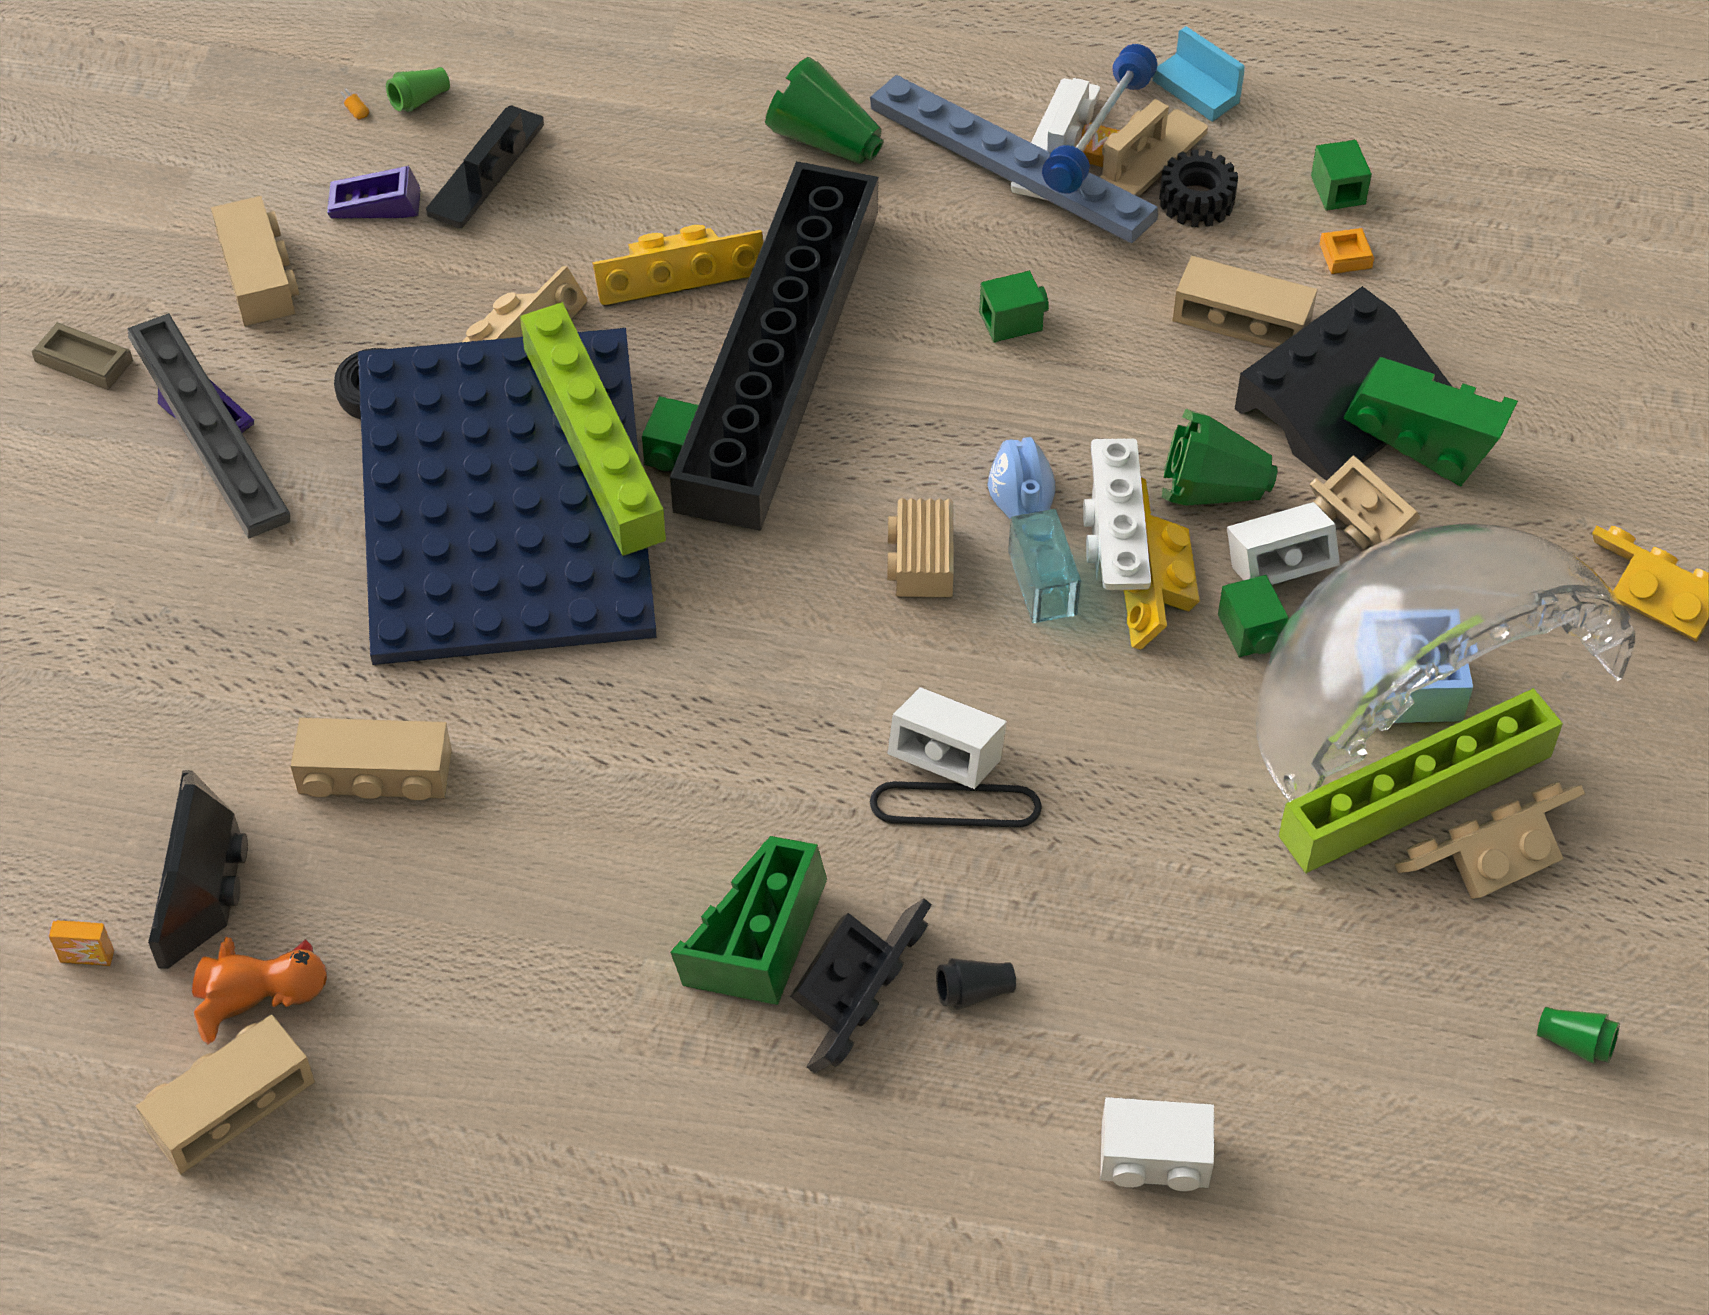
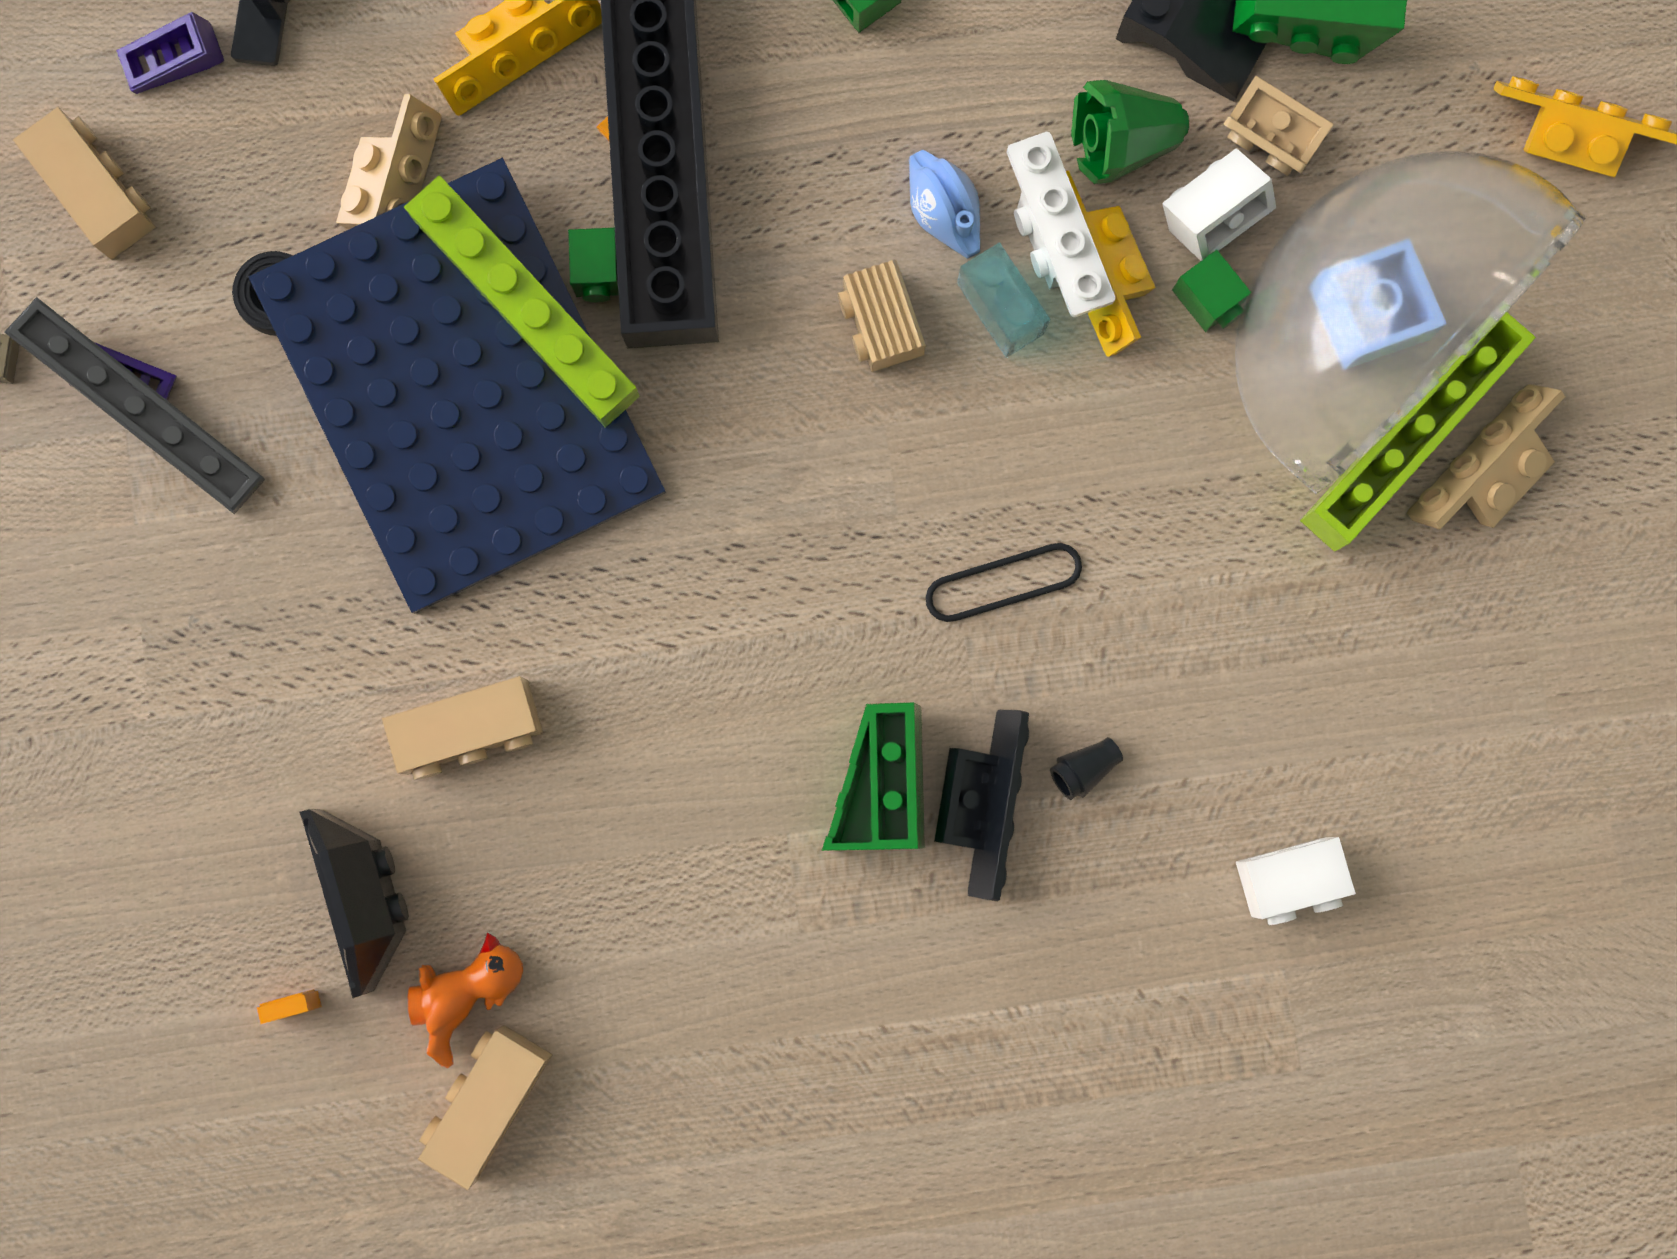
camera: 20 degrees left, 30 degrees up
(947, 737) = (980, 528): white brick -> none
(1582, 1033) = (1615, 638): green cone -> none

